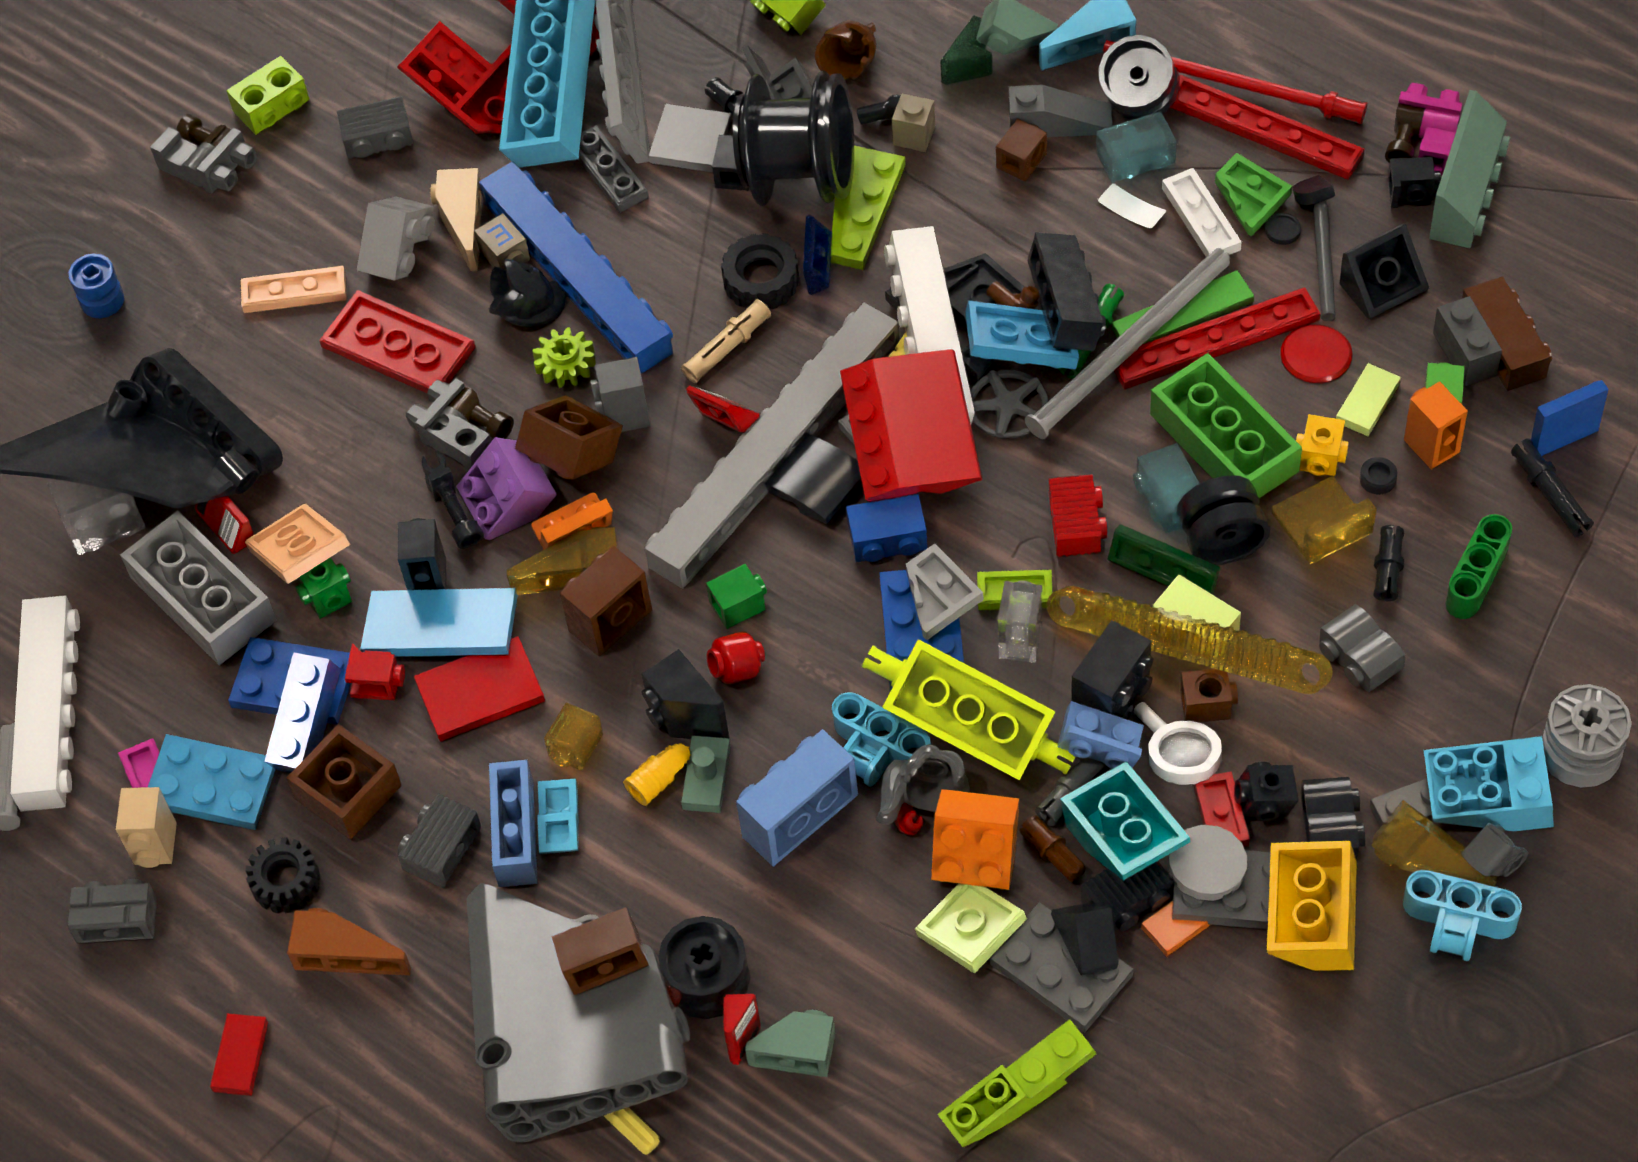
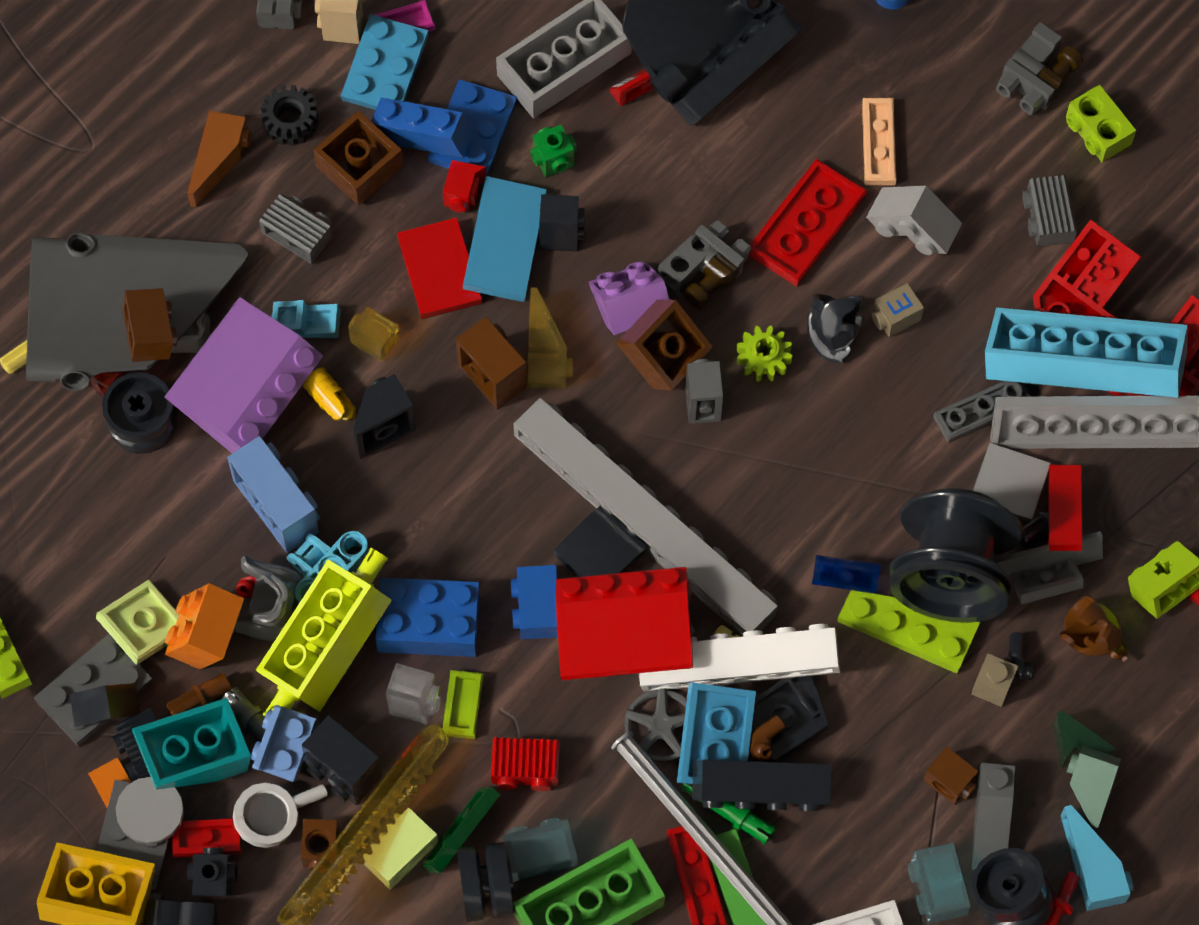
camera: 90 degrees right, 10 degrees up
(239, 1054) = (144, 82): red tile -> none
(297, 543) = (592, 129): light nougat tile -> none
(441, 484) = (640, 245): black bar -> none
(460, 208) = (944, 277): tan slope -> none
(513, 823) = (295, 279): medium blue brick -> none
(577, 268) = (864, 370): brick -> none
(577, 516) = (584, 346): orange bracket -> none
(653, 847) = (243, 376): none -> medium lavender slope
(706, 774) = (324, 435): sand green tile -> none
(717, 77) = (1065, 508): none -> red tile
(722, 409) = (683, 476): red slope -> none
(735, 657) = (426, 465): red head -> none
(737, 331) = (789, 517): tan pin -> none
(737, 595) = (489, 472): green brick -> none
(740, 1024) = (77, 429): red slope -> none
(755, 249) = (844, 503): black tyre -> none
(795, 1044) = (61, 478): sand green slope -> none
(939, 590) = (438, 621): light grey wing -> none
(1130, 206) = (877, 872): white sticker -> none

